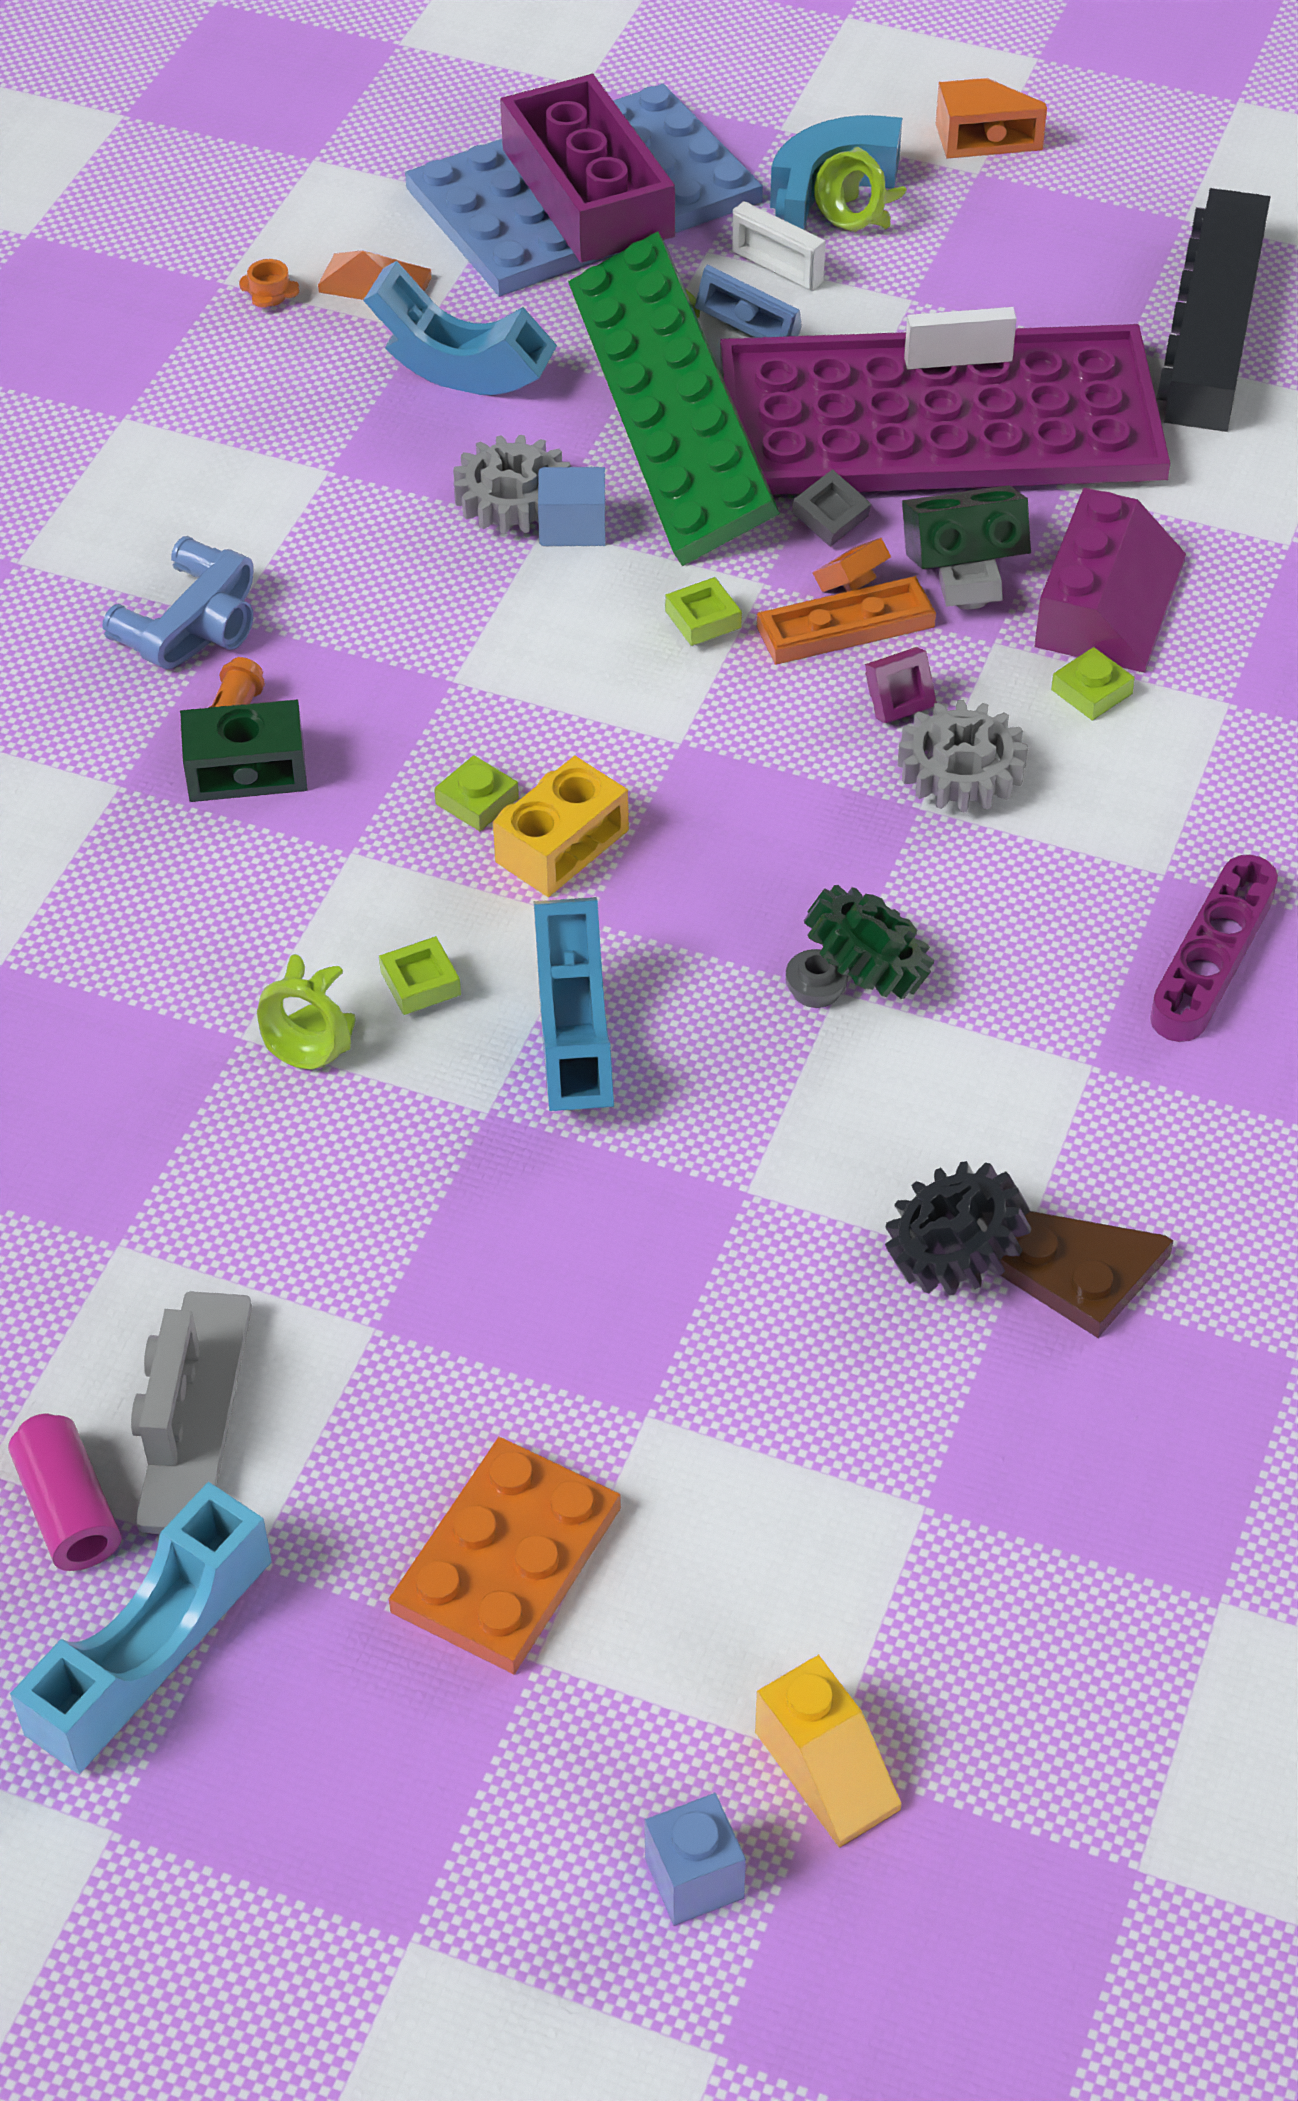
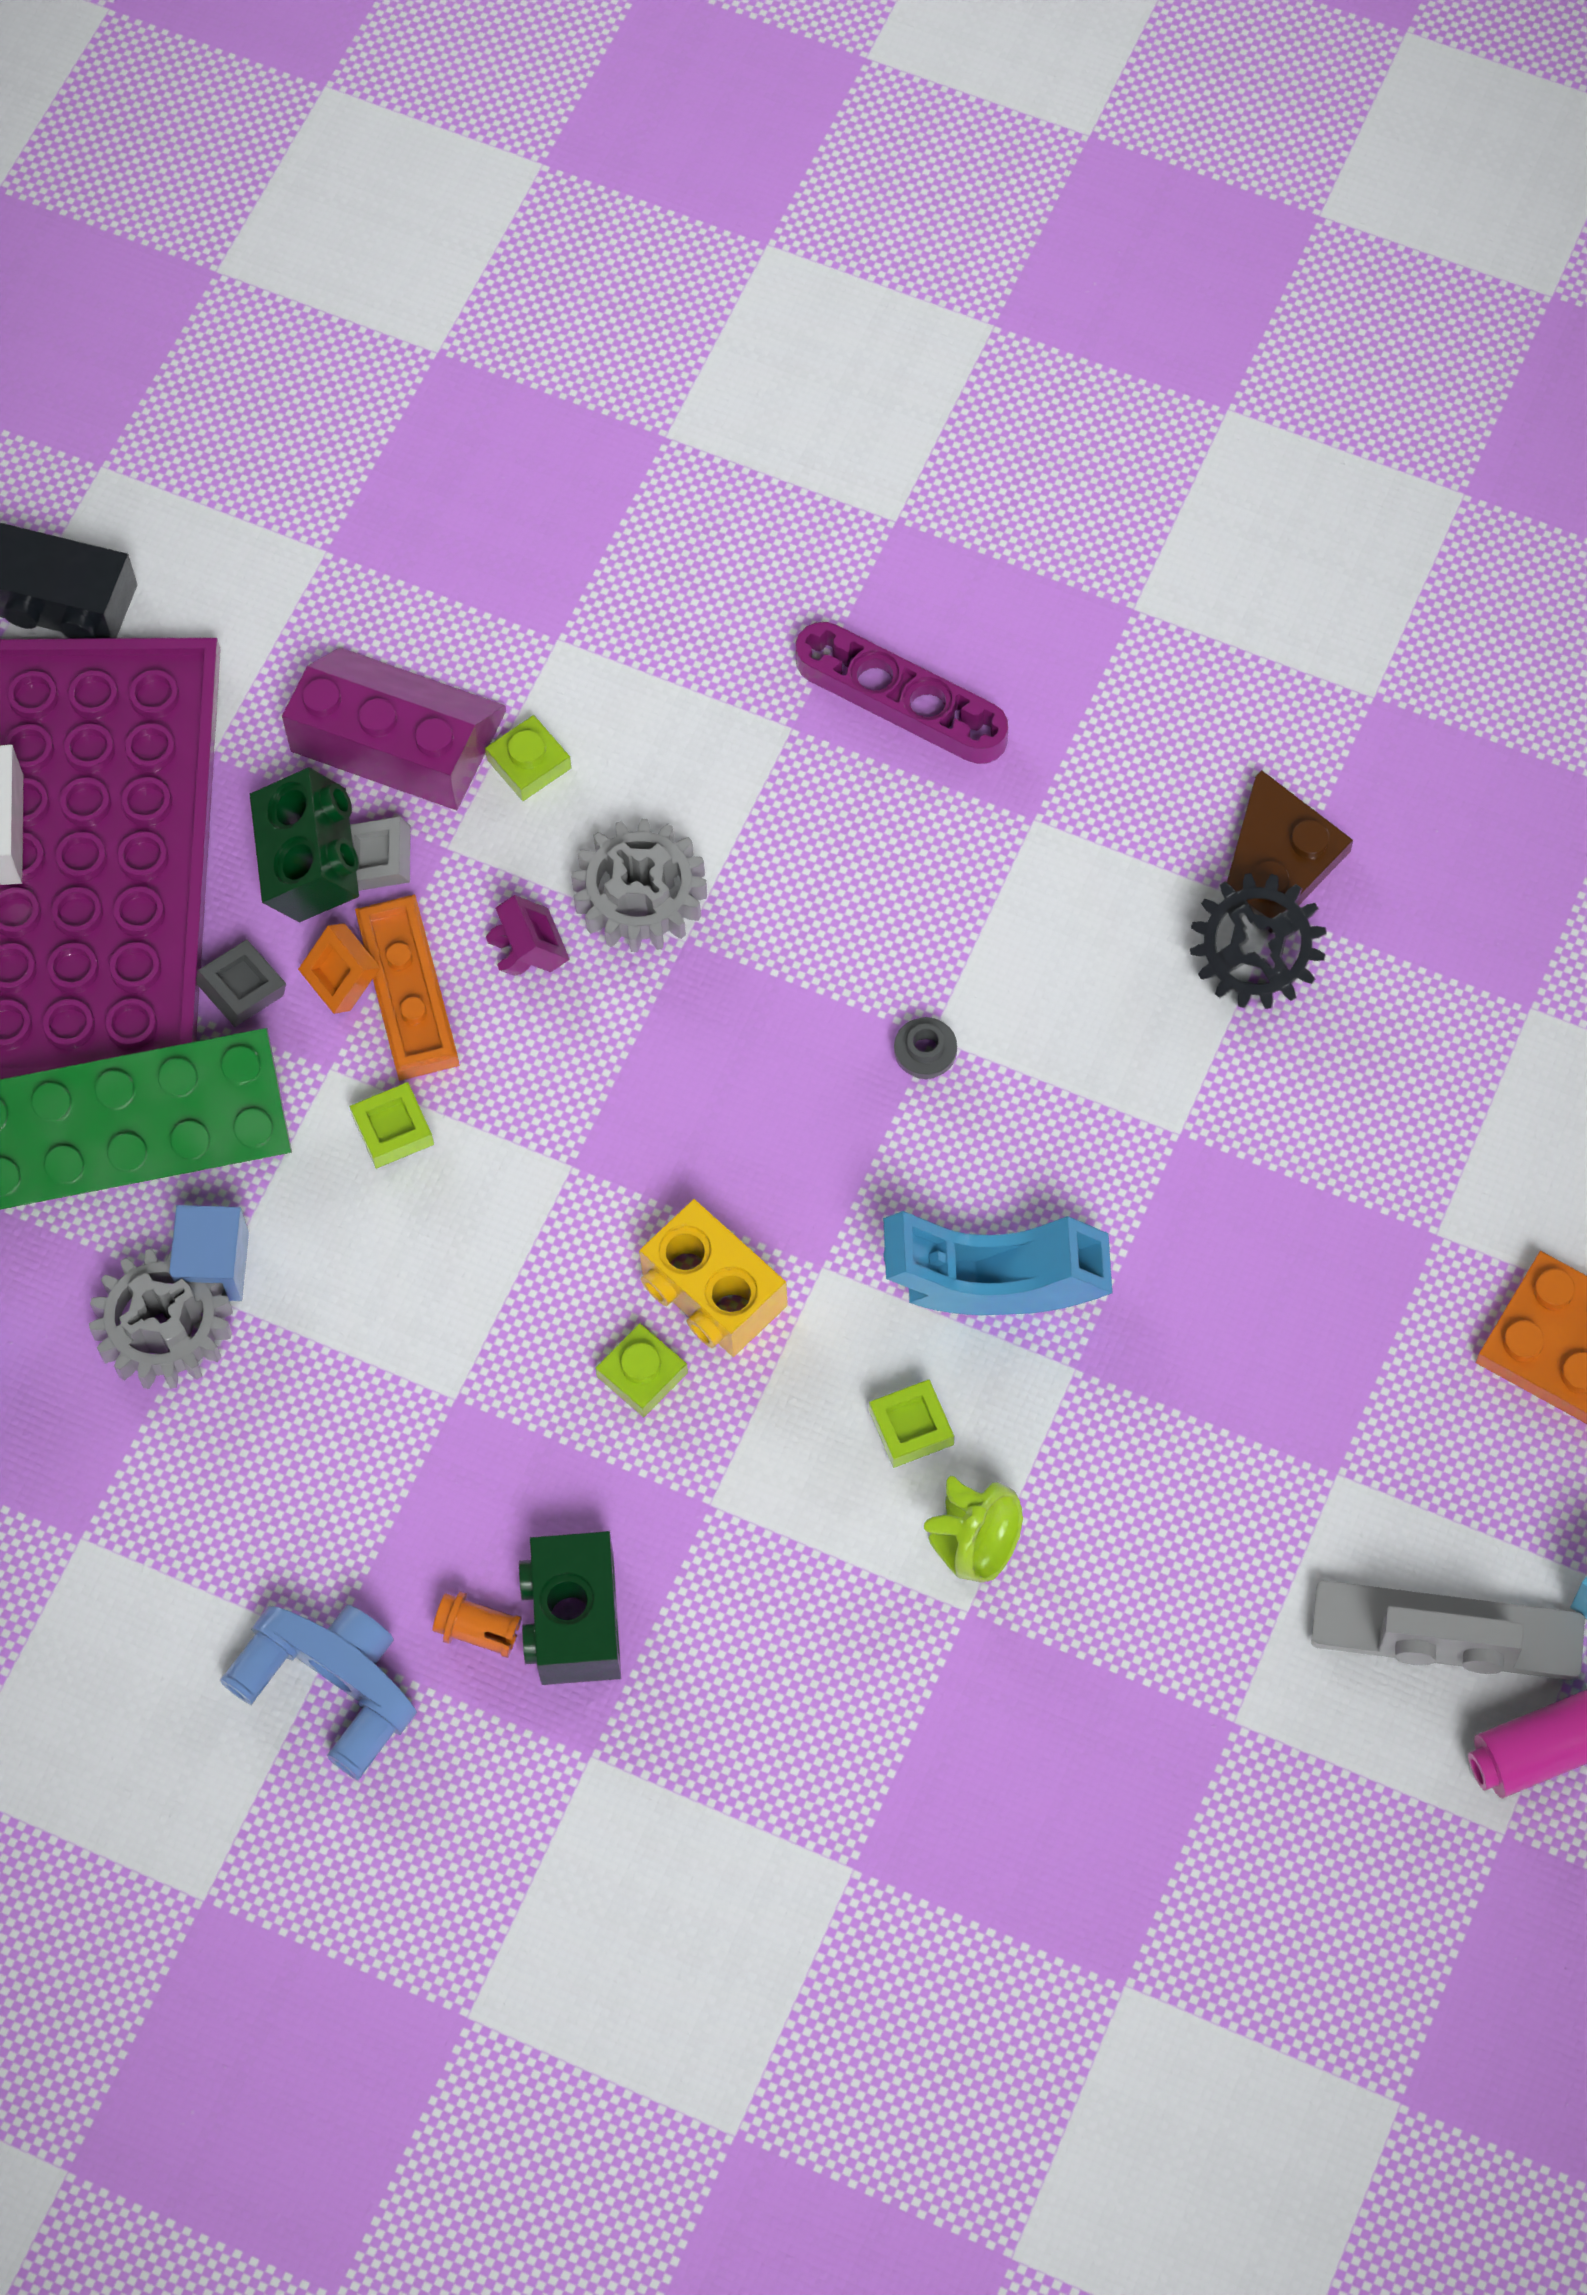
camera: 85 degrees left, 15 degrees up
(868, 941) = (908, 987): dark green gear -> none

